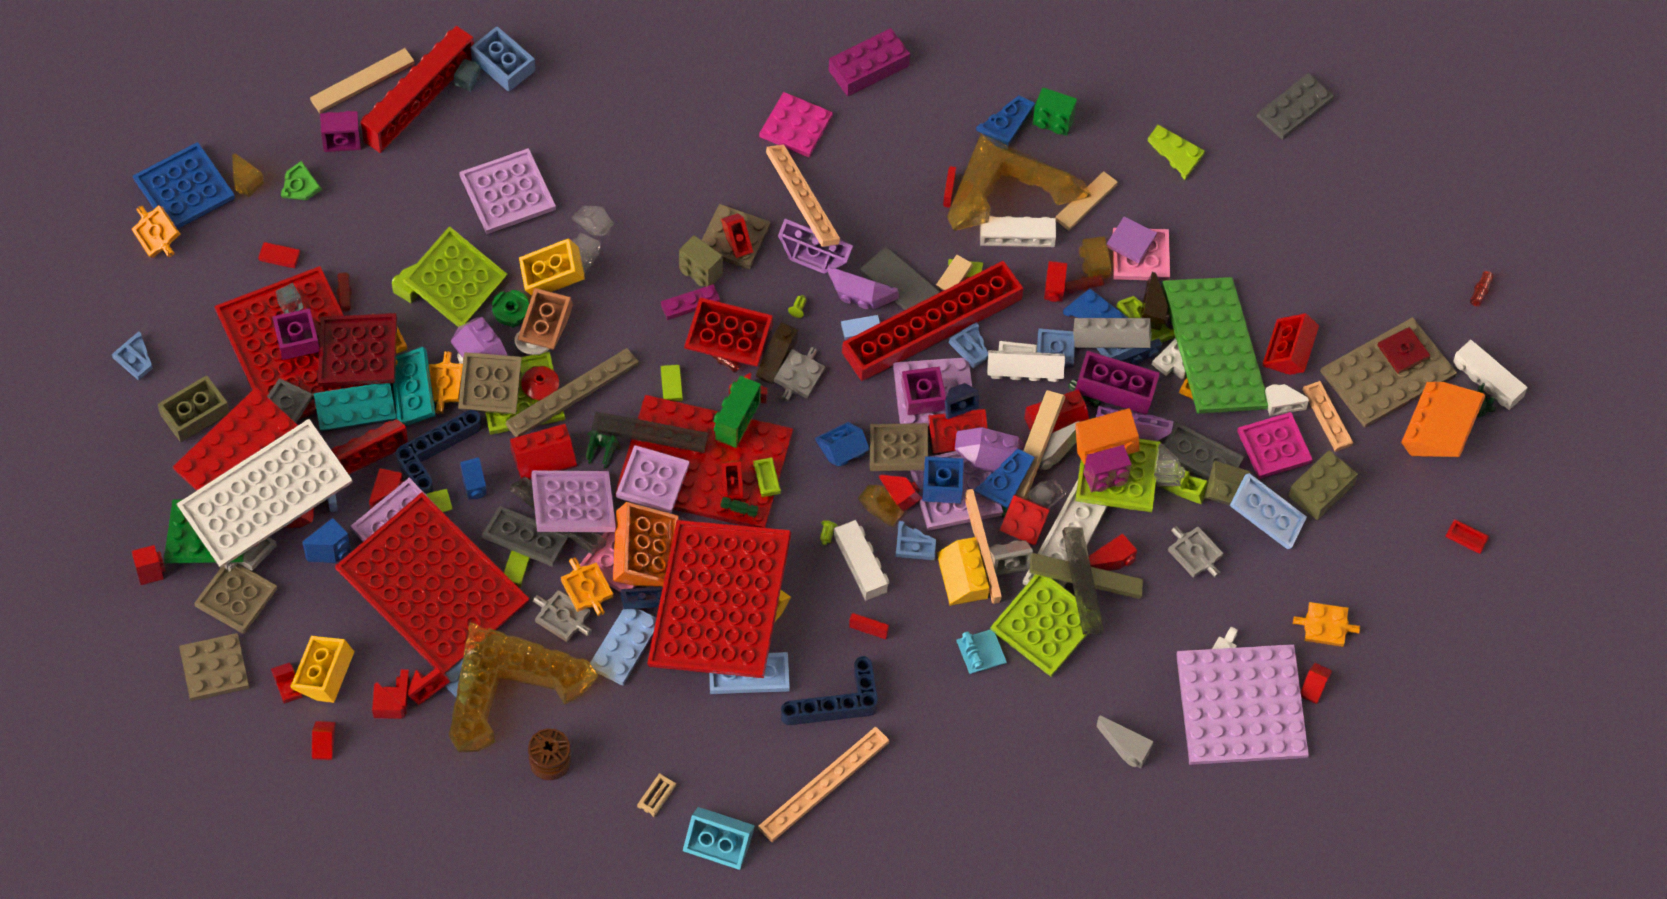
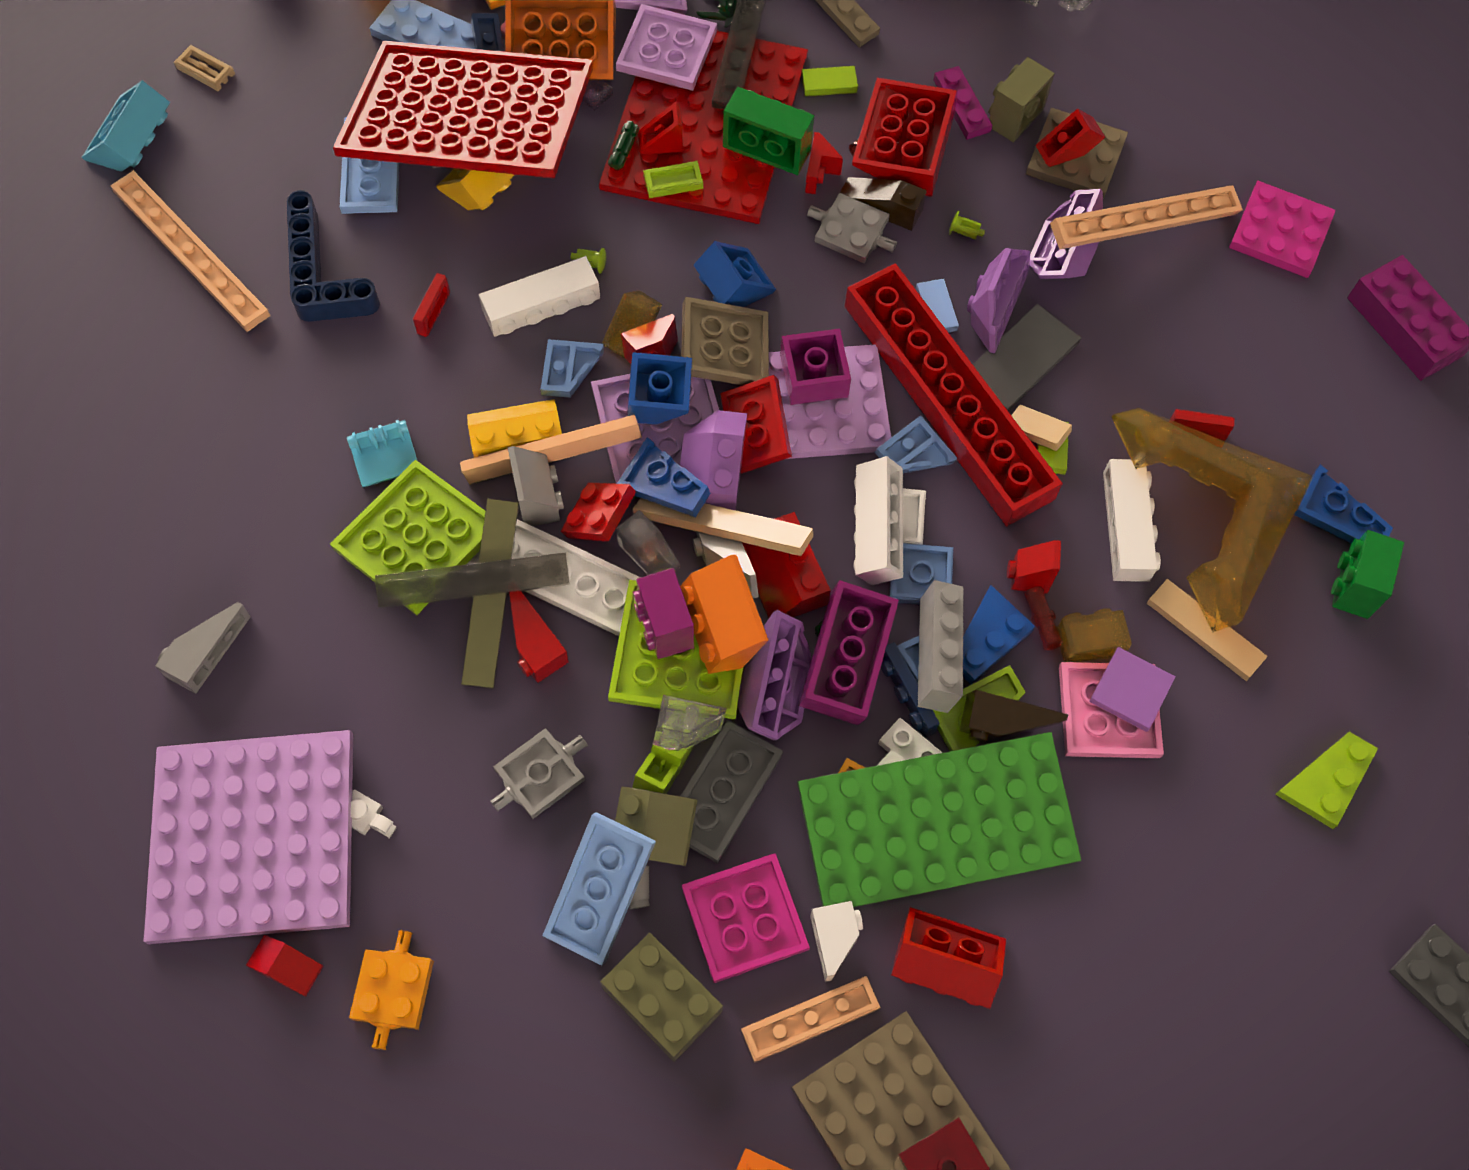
camera: 90 degrees right, 5 degrees up
(961, 400) = (796, 410): dark blue slope -> none

